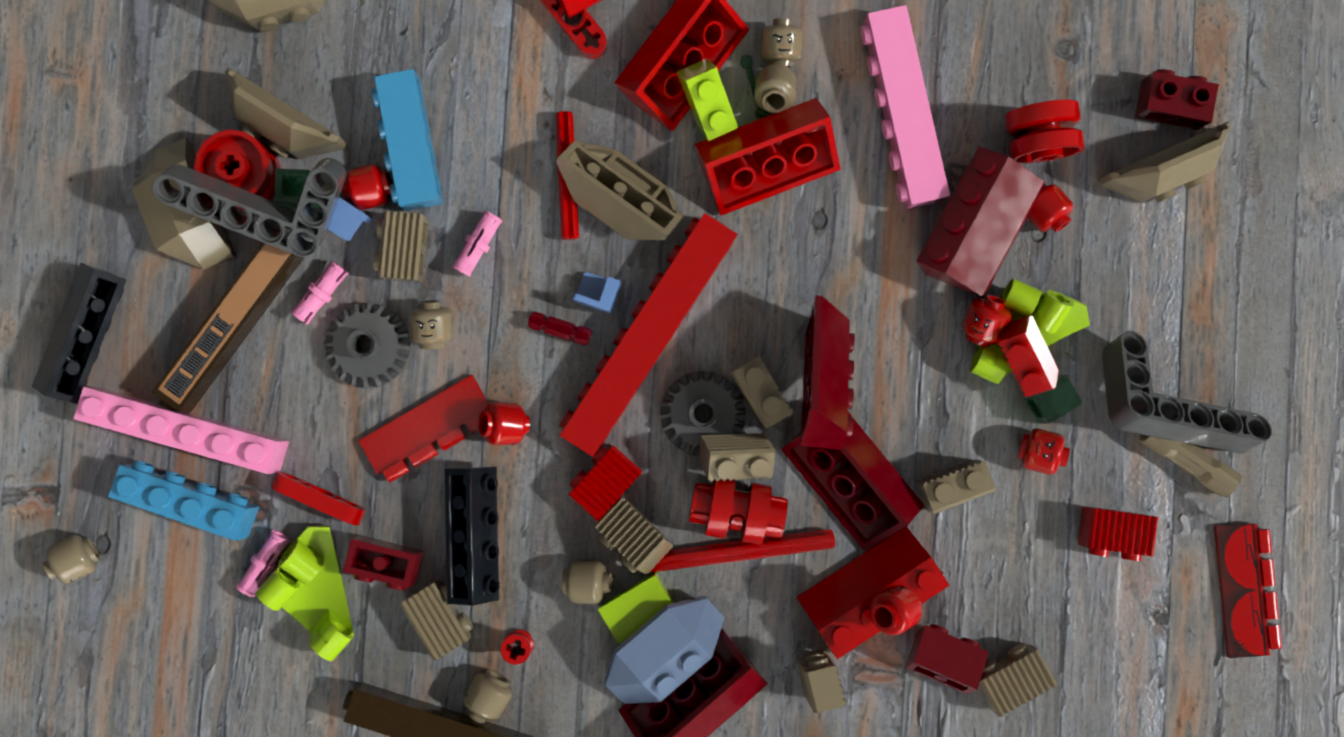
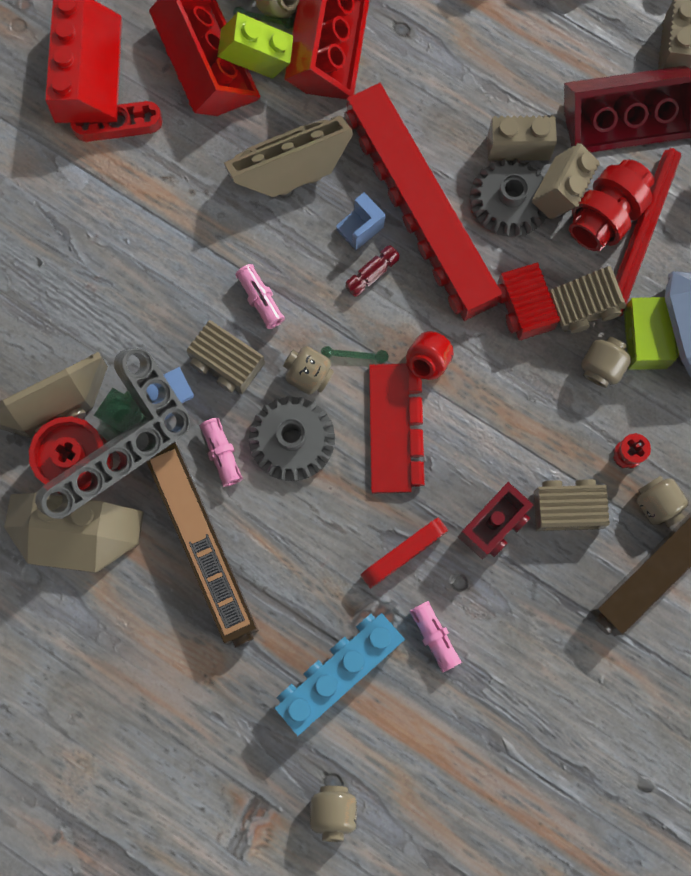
camera: 55 degrees left, 10 degrees down
(79, 333) = (128, 683): black brick -> none
(181, 430) = (271, 640): bright pink brick -> none
(312, 591) = (486, 607): lime panel -> none
(367, 187) = (160, 349): red head -> none
(408, 140) = (137, 300): dark azure brick -> none
(471, 535) = (514, 432): black brick -> none
(485, 380) = (381, 356): none -> clear green hinge
(568, 207) = (258, 201): red axle -> none
(826, 378) = (542, 73): dark red slope -> none

